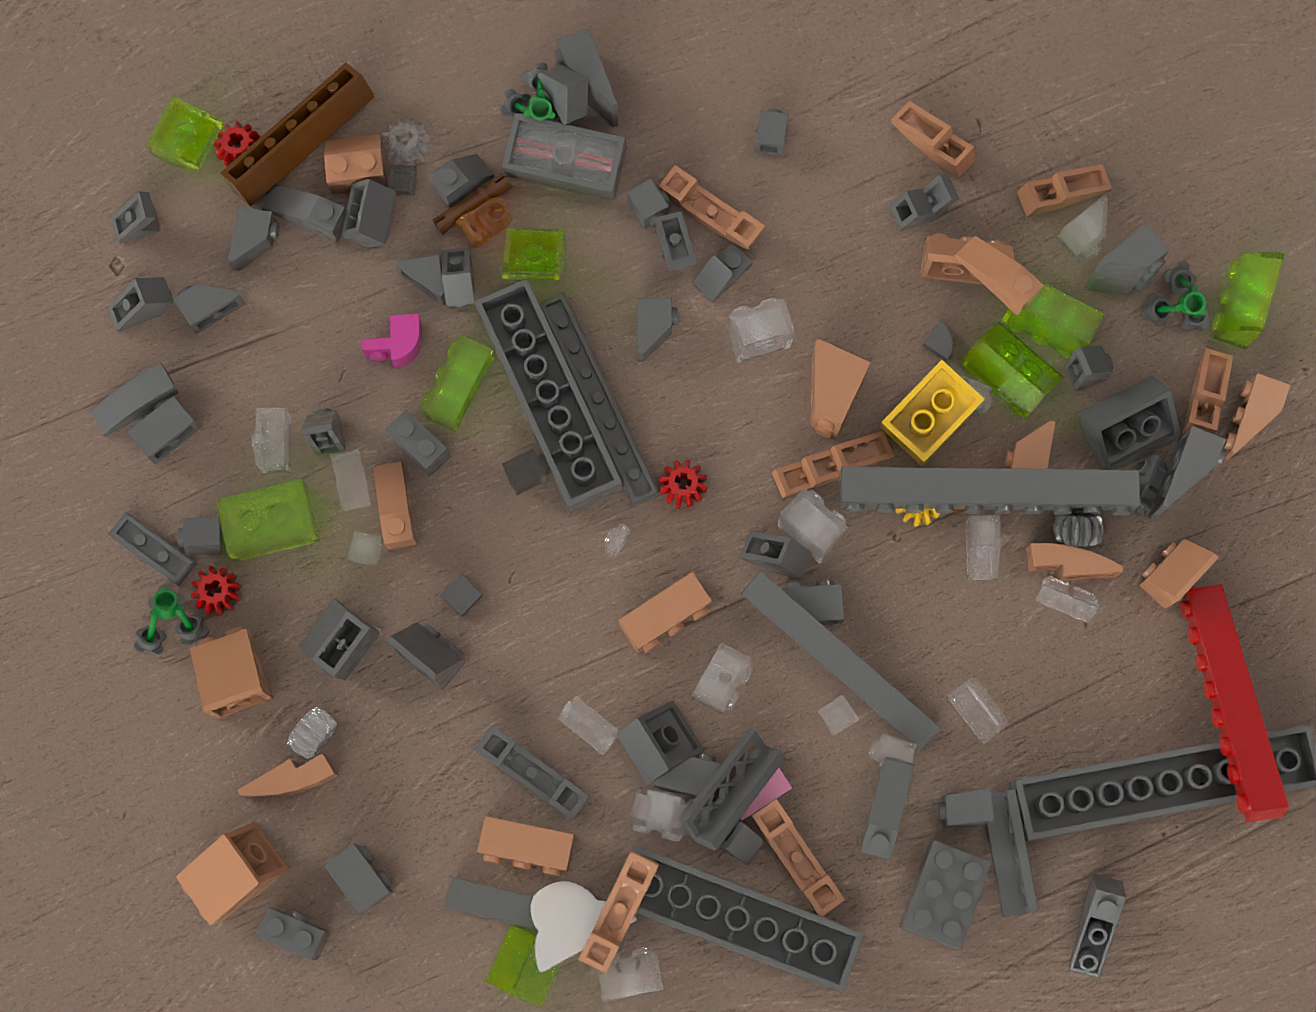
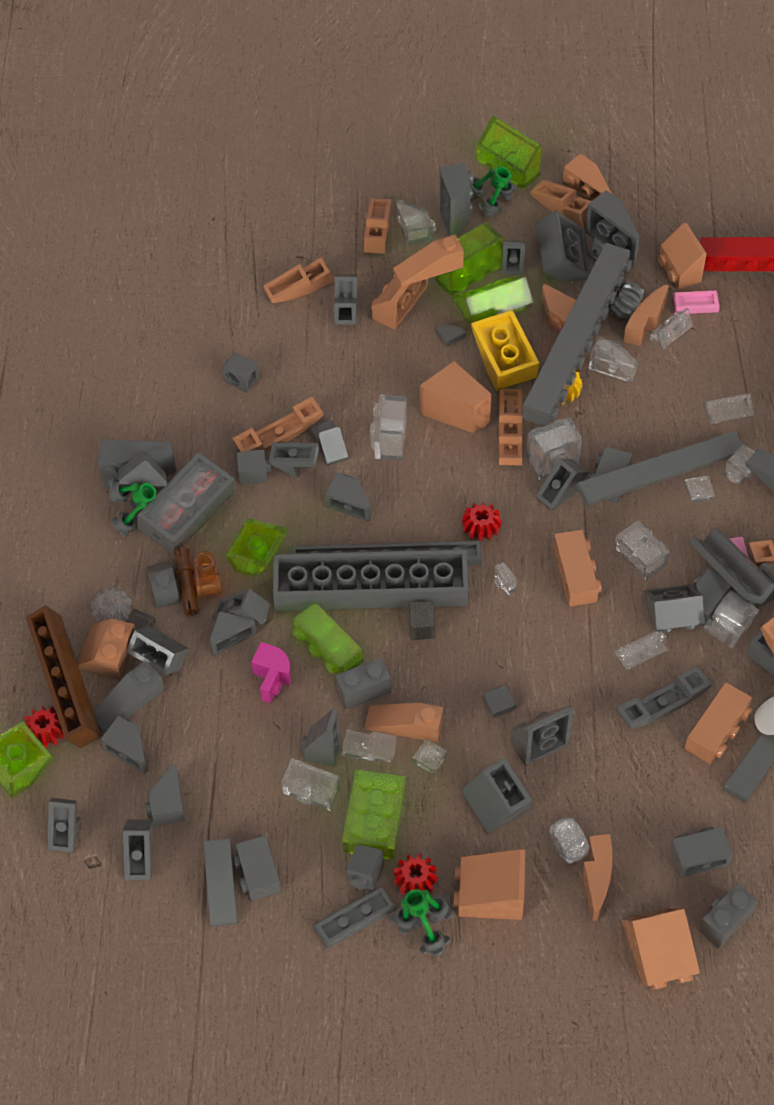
camera: 65 degrees left, 20 degrees down
(1126, 614) = (696, 301): none -> bright pink tile

